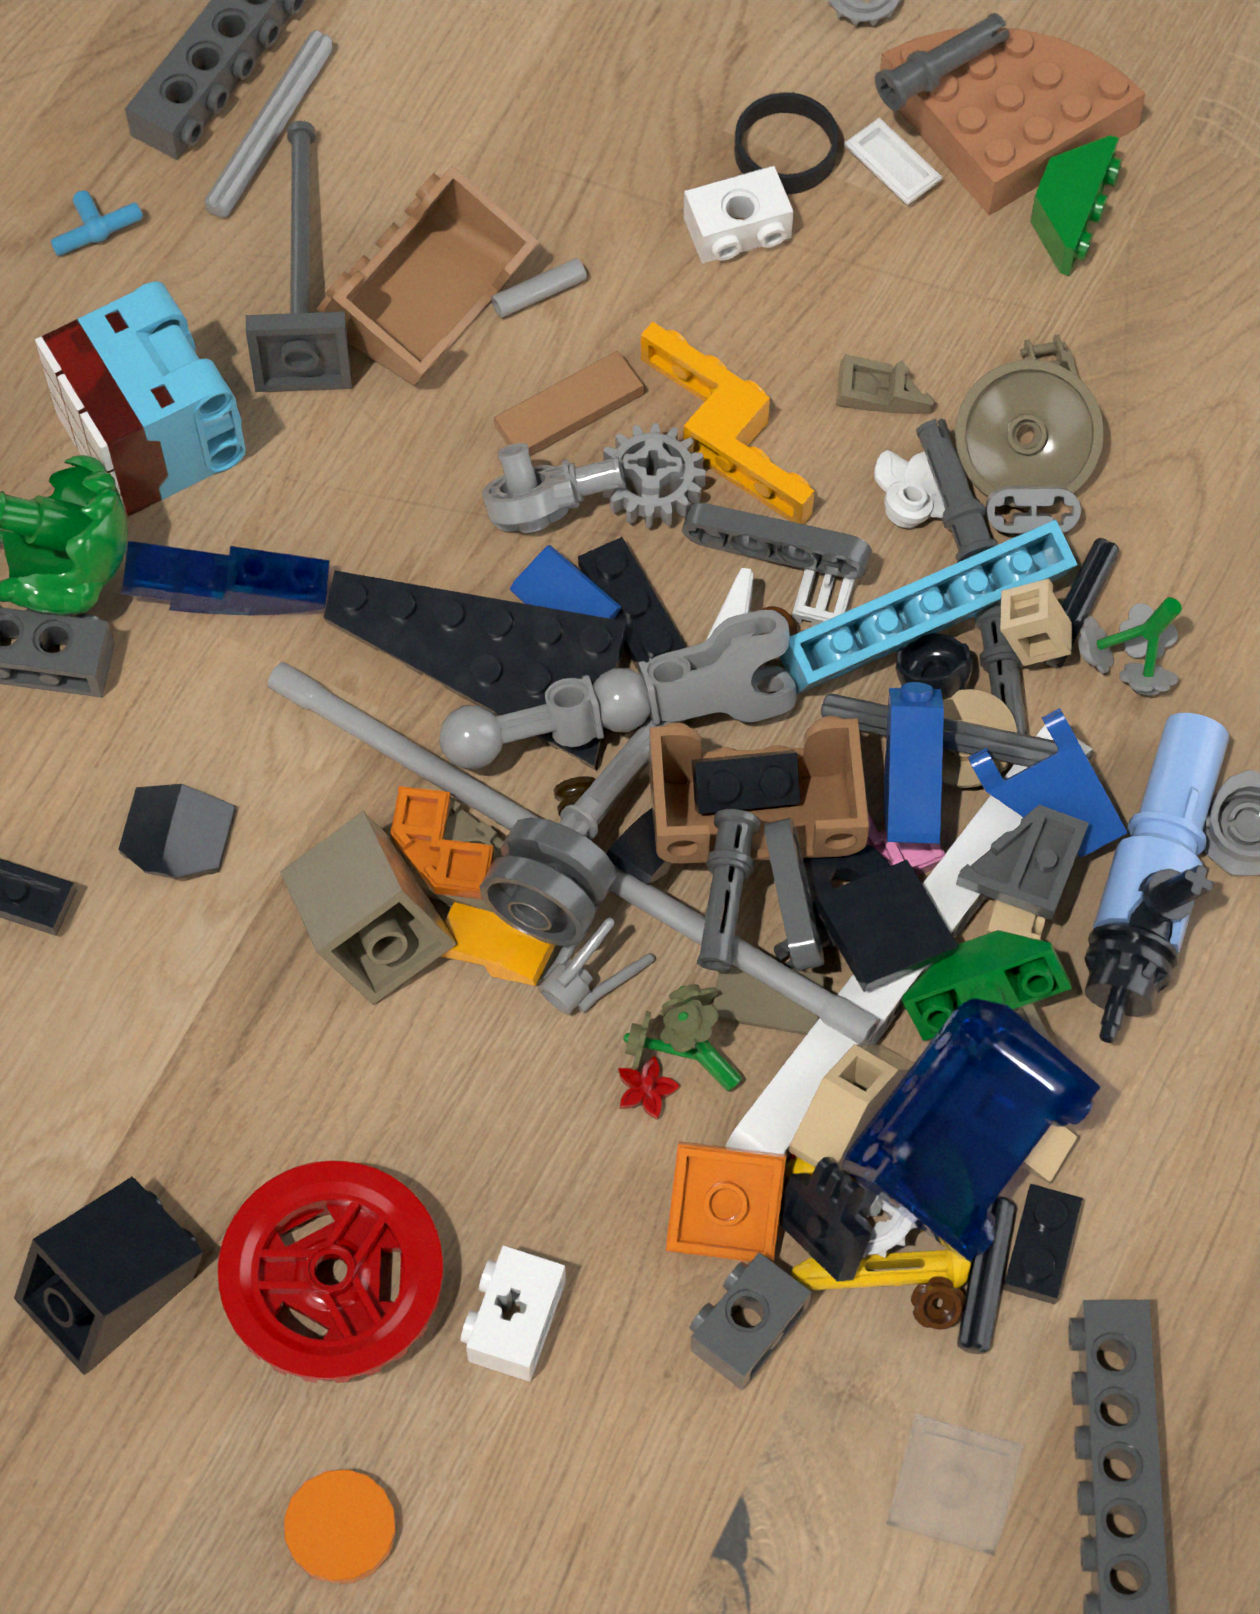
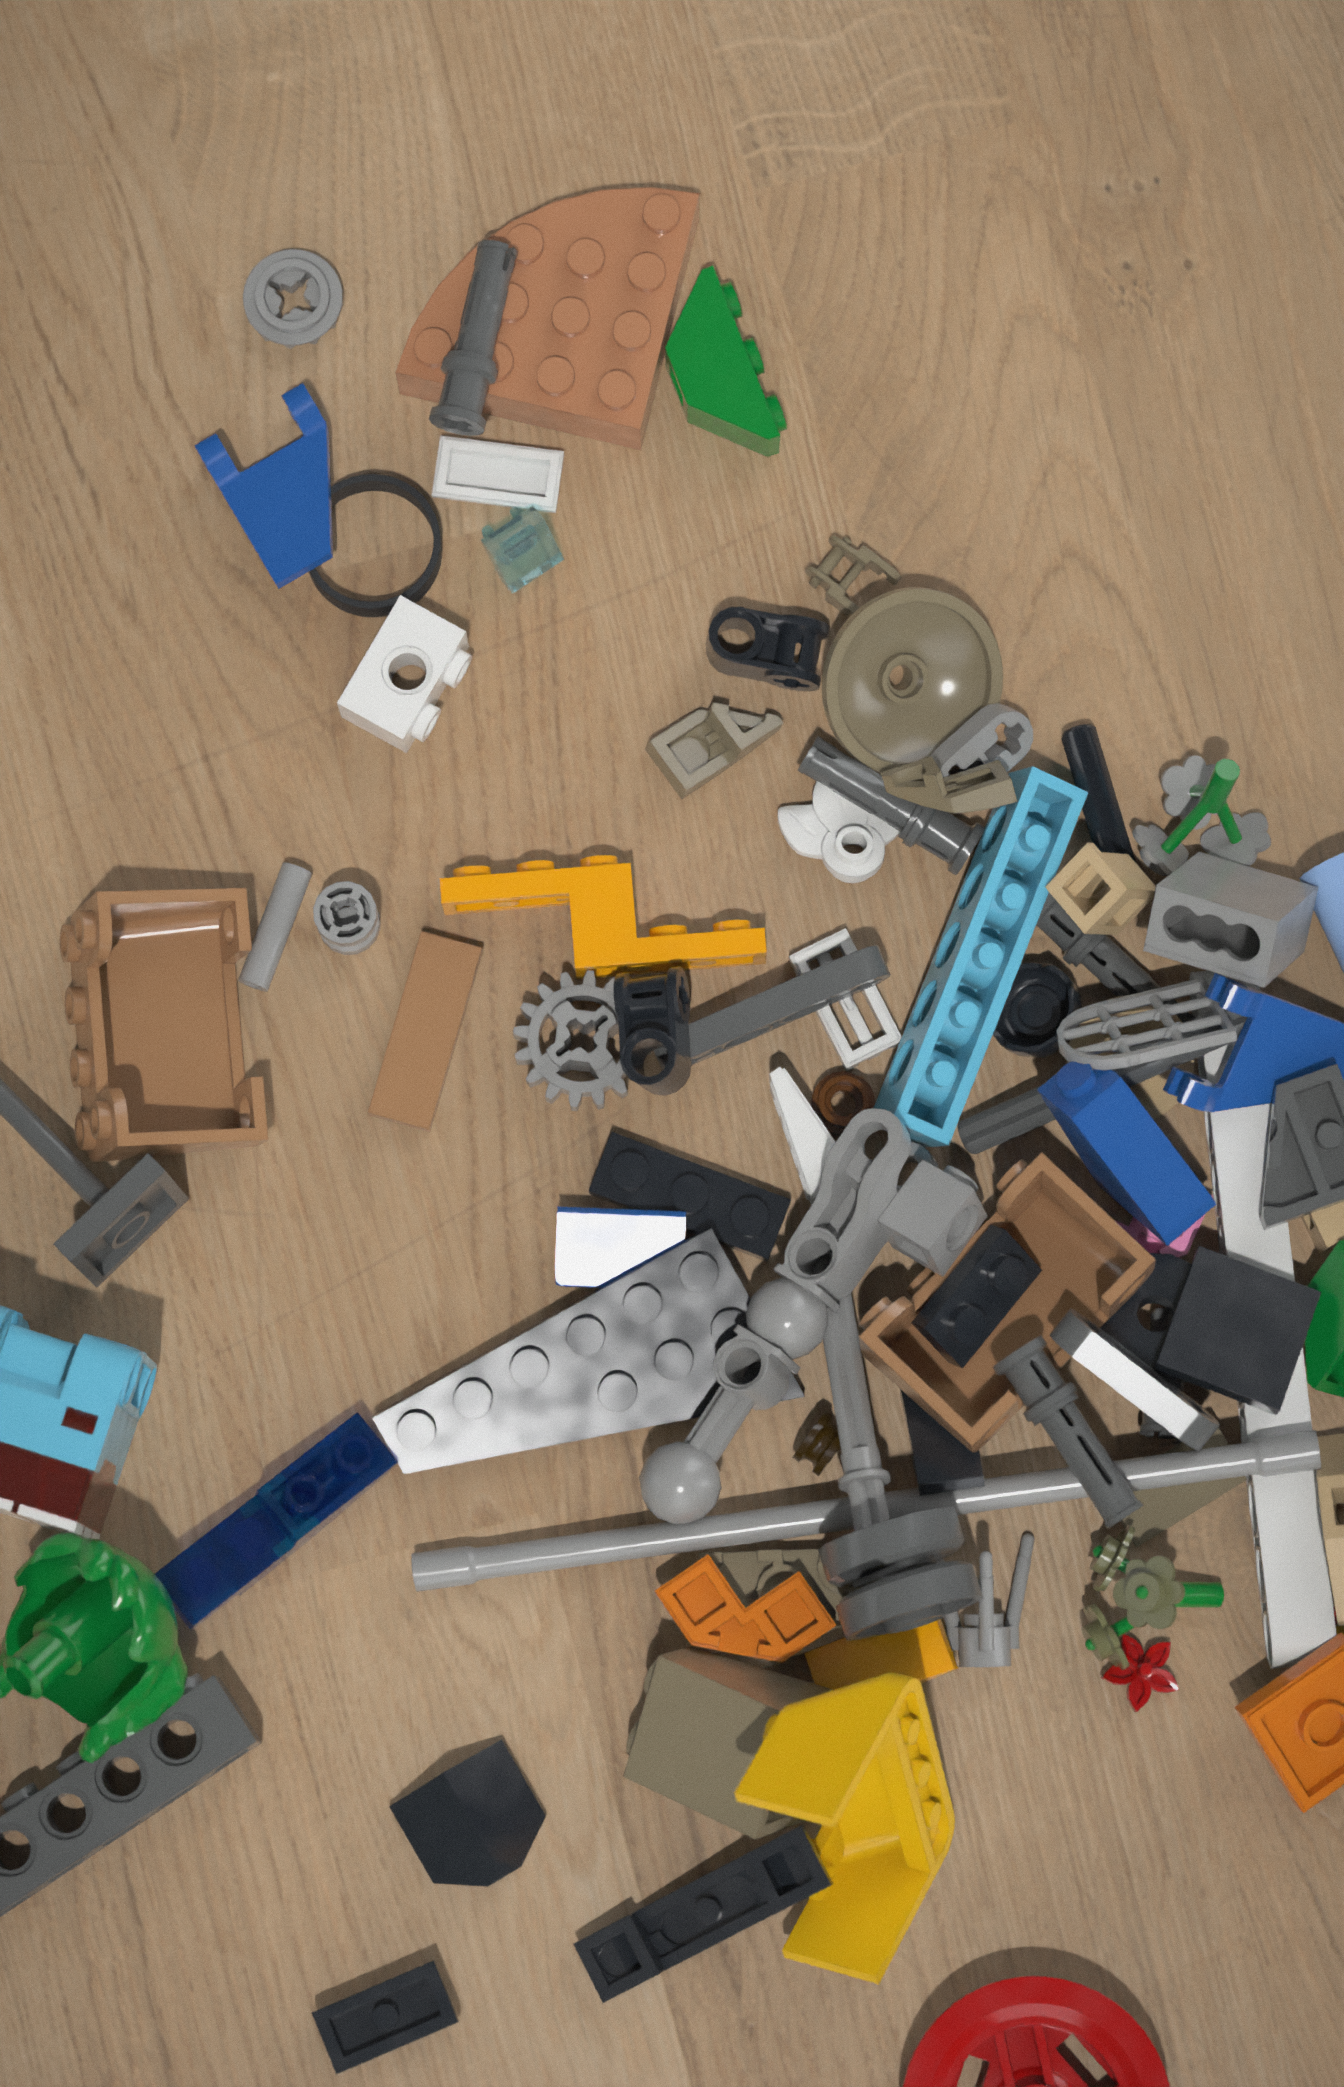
camera: 40 degrees left, 15 degrees up
(249, 994) = (703, 1913): none -> black slope
(419, 995) = (876, 1783): none -> yellow windscreen
(515, 1344) = (1259, 2020): white brick -> none
(538, 495) = (498, 1155): light grey pin -> none
(582, 309) = (352, 927): none -> light grey wheel
(695, 488) = (651, 1016): none -> black piece
(757, 79) = (284, 497): none -> blue flag
(761, 714) = (933, 1216): none -> light grey brick
(868, 204) = (521, 548): none -> clear light blue tile
(962, 362) = (772, 647): none -> black piece
(983, 488) = (962, 792): none -> dark tan slope
(988, 707) = (1161, 1012): none -> light grey window
(1099, 696) = (1230, 919): none -> light grey piece

